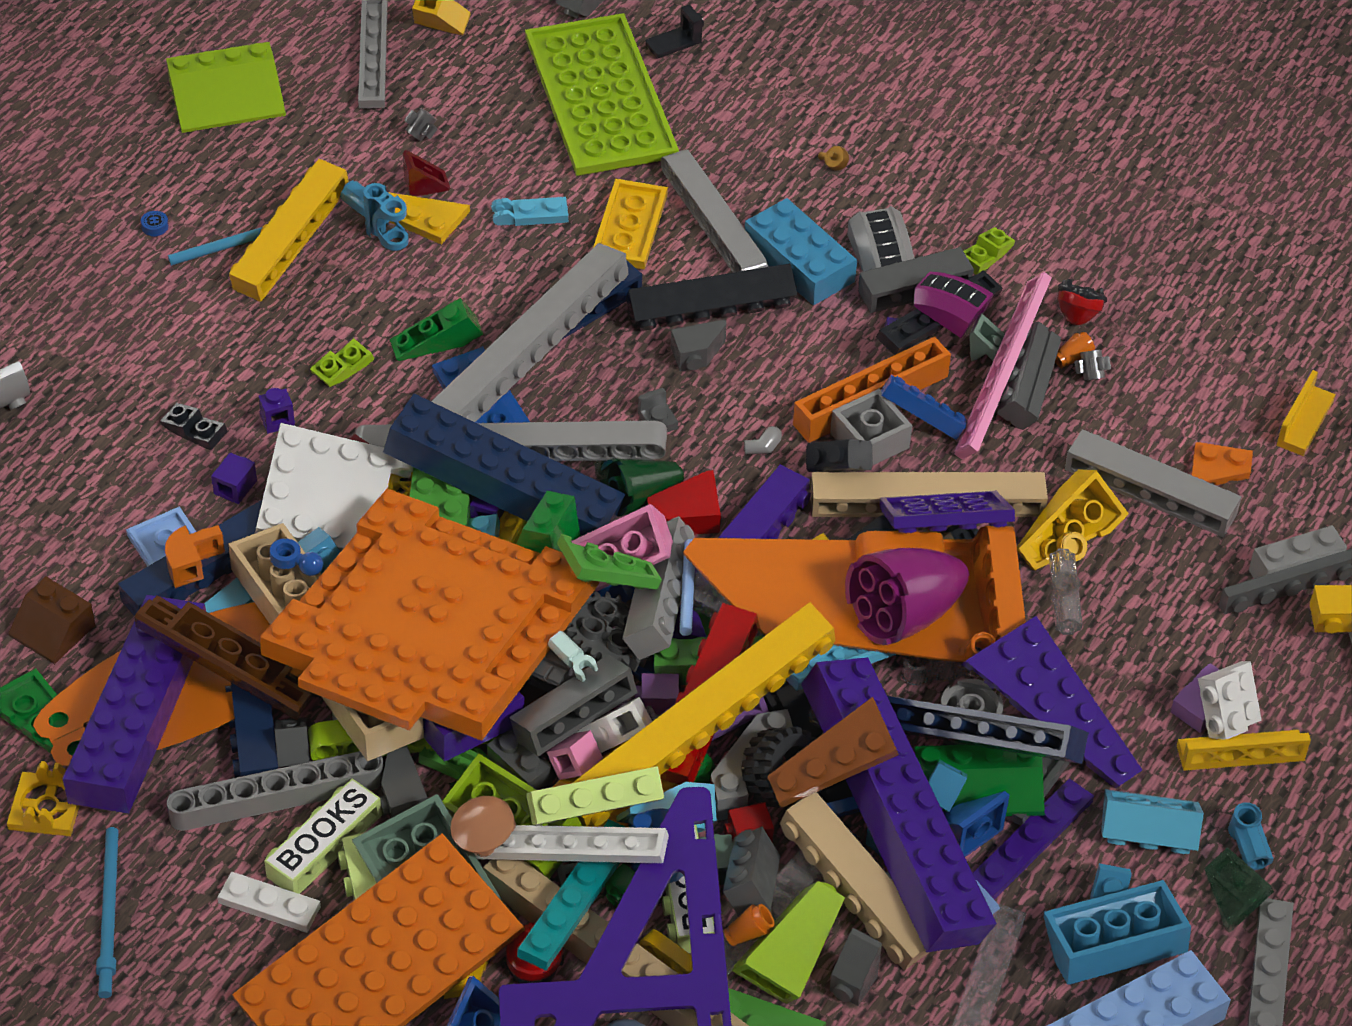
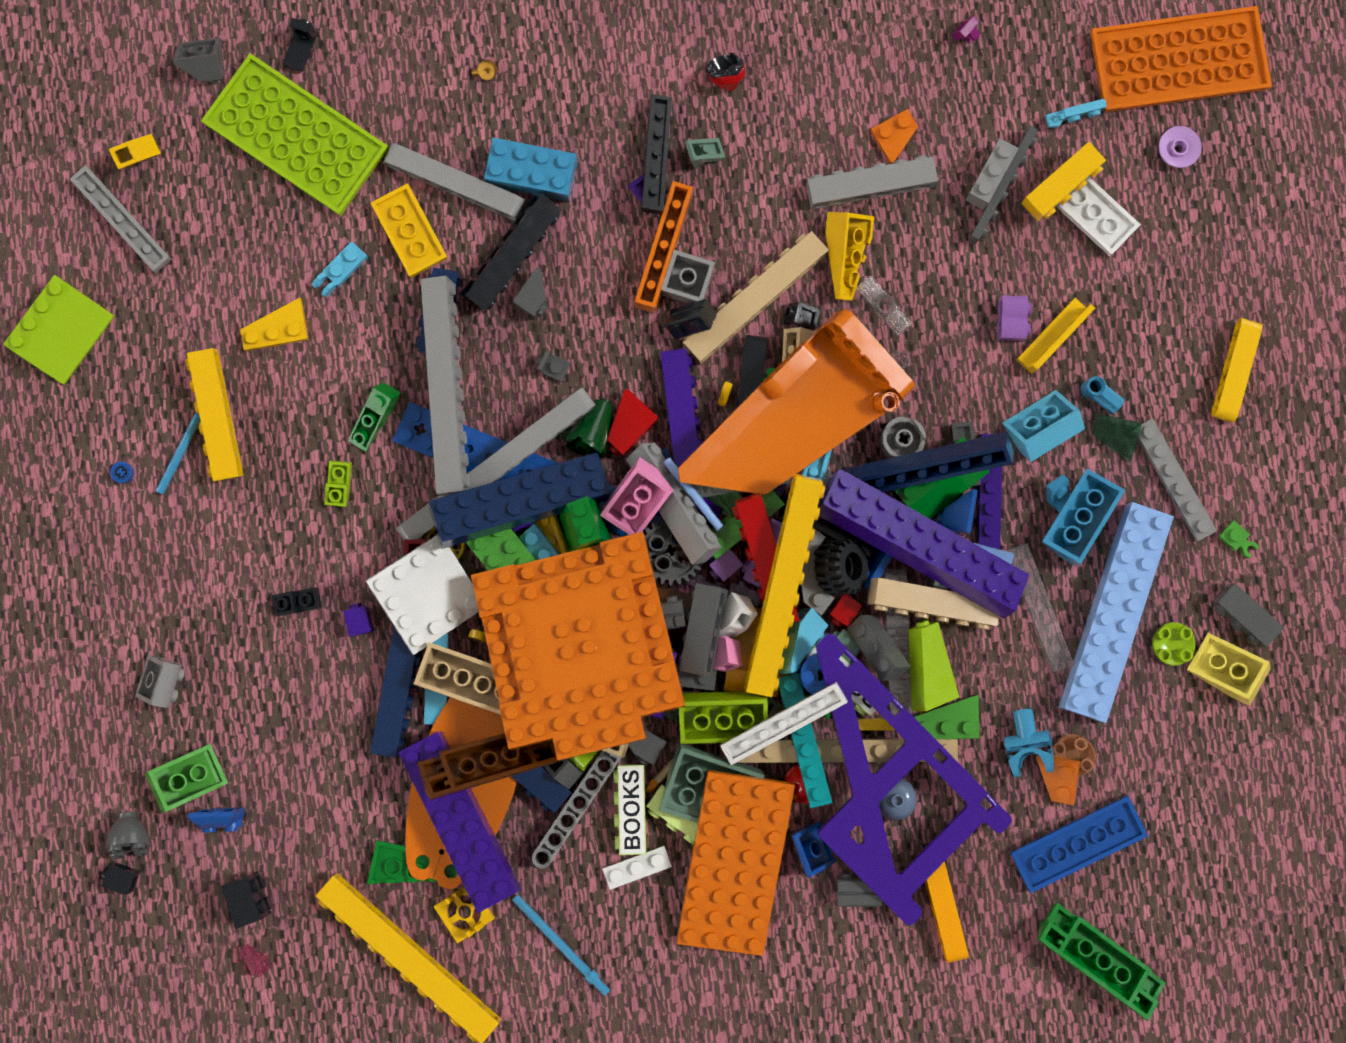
camera: 40 degrees left, 35 degrees up
(52, 620) = (353, 803): reddish brown slope -> none
(151, 535) = (358, 692): light blue tile -> none
(187, 550) = (391, 709): orange brick -> none
(274, 403) = (336, 553): dark purple brick -> none
(287, 554) = (477, 664): blue plate -> none
(322, 544) = (463, 638): dark azure brick -> none
(378, 209) = (250, 353): dark azure connector -> none
(421, 124) = (210, 258): flat silver gear -> none
(422, 176) = (252, 298): dark red slope -> none
(482, 825) = (725, 749): nougat dish -> none
(571, 654) = (680, 606): light aqua bar -> none
(593, 564) = (650, 532): bright green wing -> none
(595, 795) = (774, 688): yellowish green brick -> none
(749, 925) = (908, 682): orange cone -> none
(766, 442) = (632, 337): light grey arm -> none
(839, 753) = (883, 547): dark orange wing -> none
(856, 968) = (973, 656): dark grey slope -> none
(879, 238) = (572, 120): light grey slope -> none
(896, 283) = (616, 134): dark grey brick -> none
(903, 591) = (824, 404): magenta cylinder -> none
(924, 406) = (706, 239): blue piece -> none
(946, 784) = (933, 505): dark azure brick -> none
(947, 509) = (793, 319): dark purple plate -> none
(951, 300) = (661, 143): magenta slope -> none
(988, 249) = (636, 72): lime slope -> none
(1002, 366) = (725, 165): bright pink tile -> none
(1030, 377) = (743, 158): dark grey brick -> none
(1046, 688) = (939, 397): dark purple wing -> none
(1071, 349) = (750, 112): orange cone -> none
(1074, 542) = (862, 268): yellow tile -> none
(1092, 364) = (771, 118): flat silver gear -> none
(1229, 700) = (1033, 316): white plate -> none
(1305, 417) = (917, 55): yellow panel -> none

